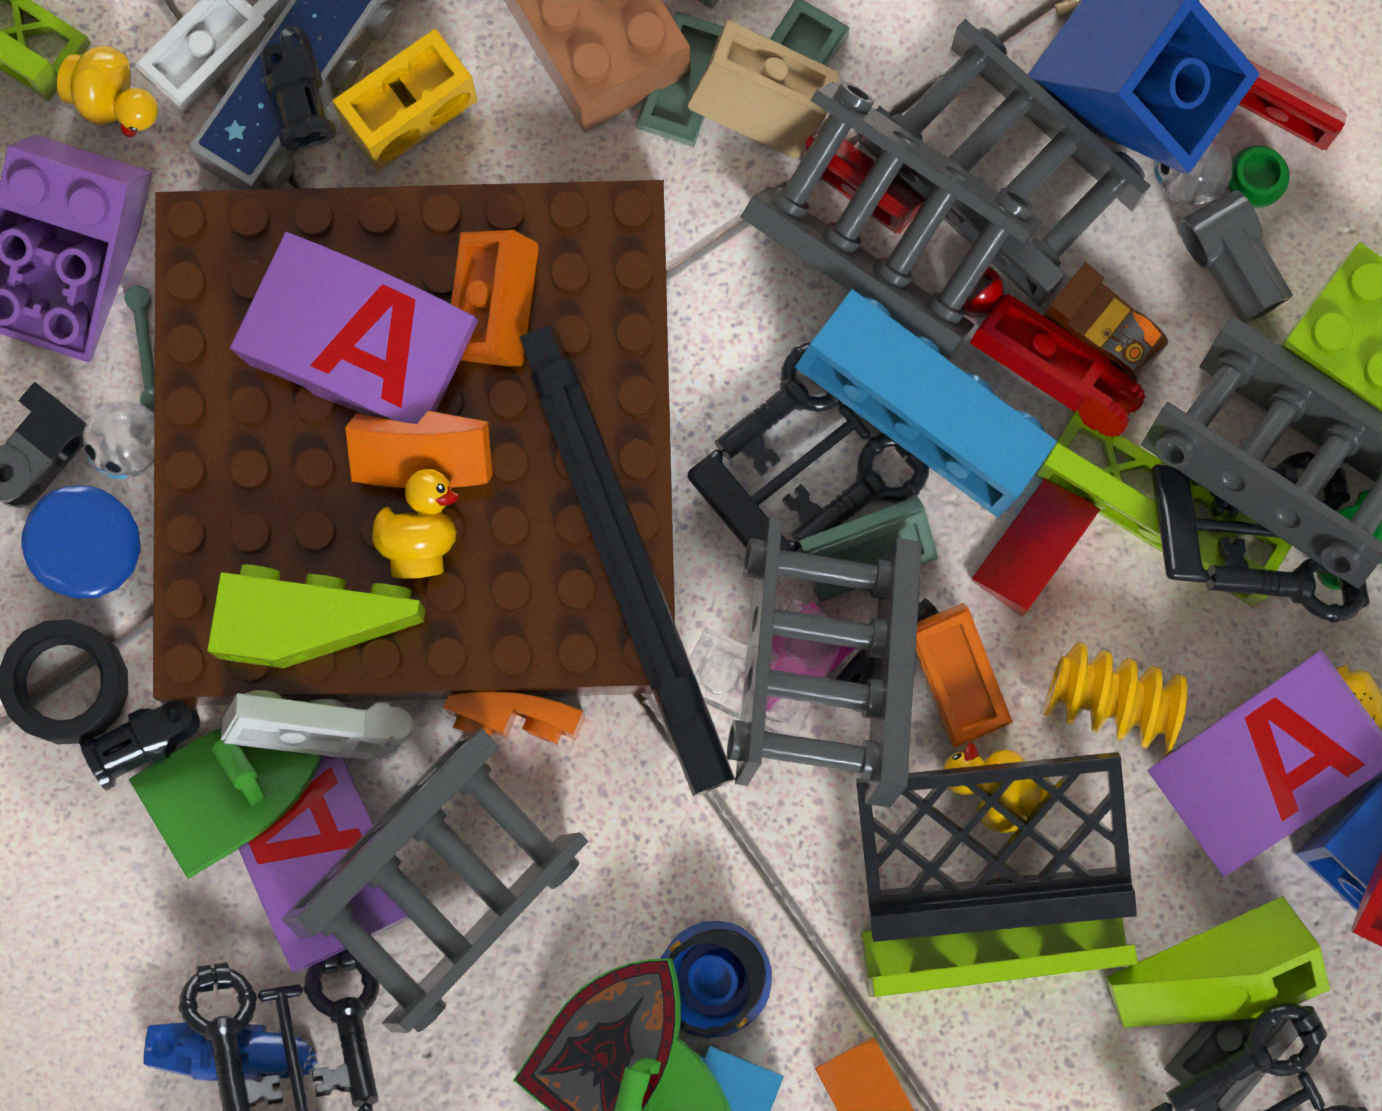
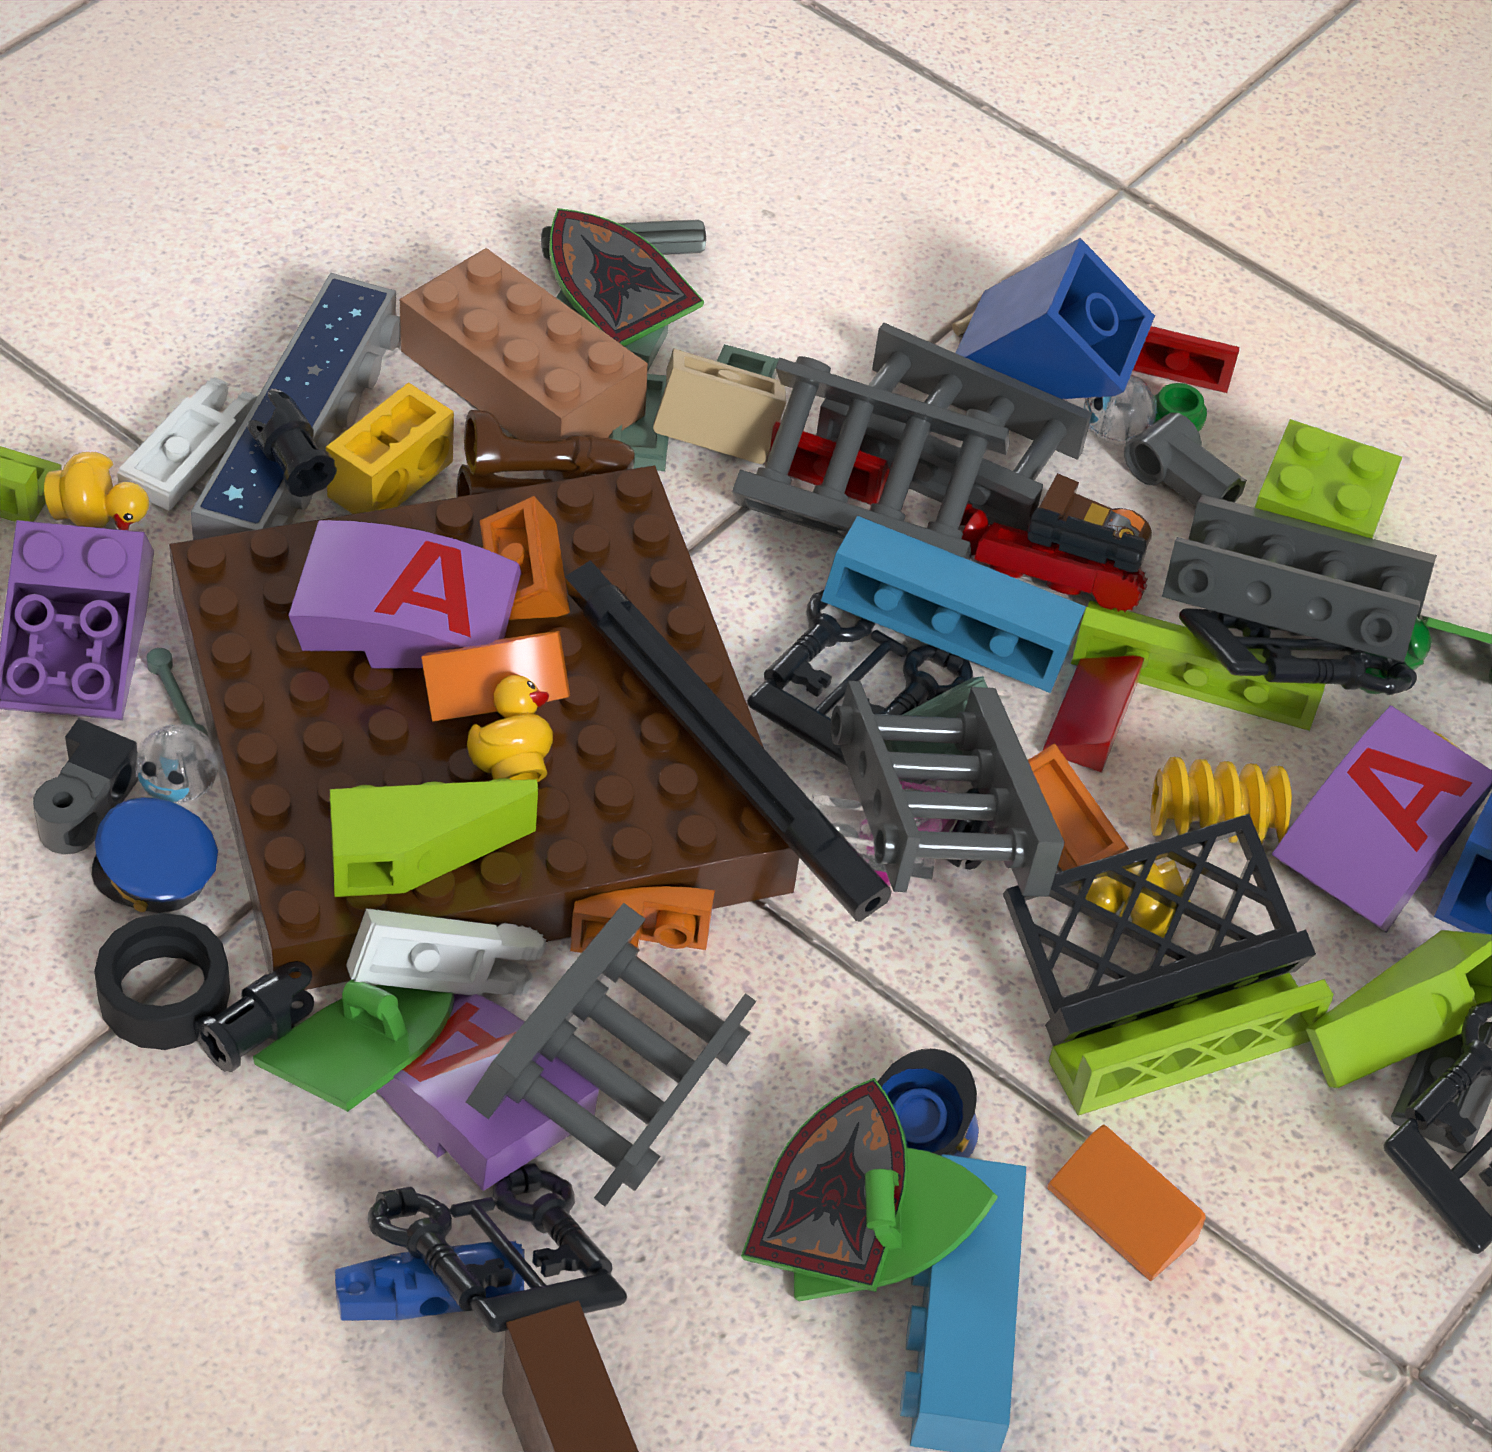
camera: 20 degrees left, 30 degrees down
(529, 152) = (493, 452): none -> reddish brown piece
(1087, 355) = (1087, 540): none -> black axle

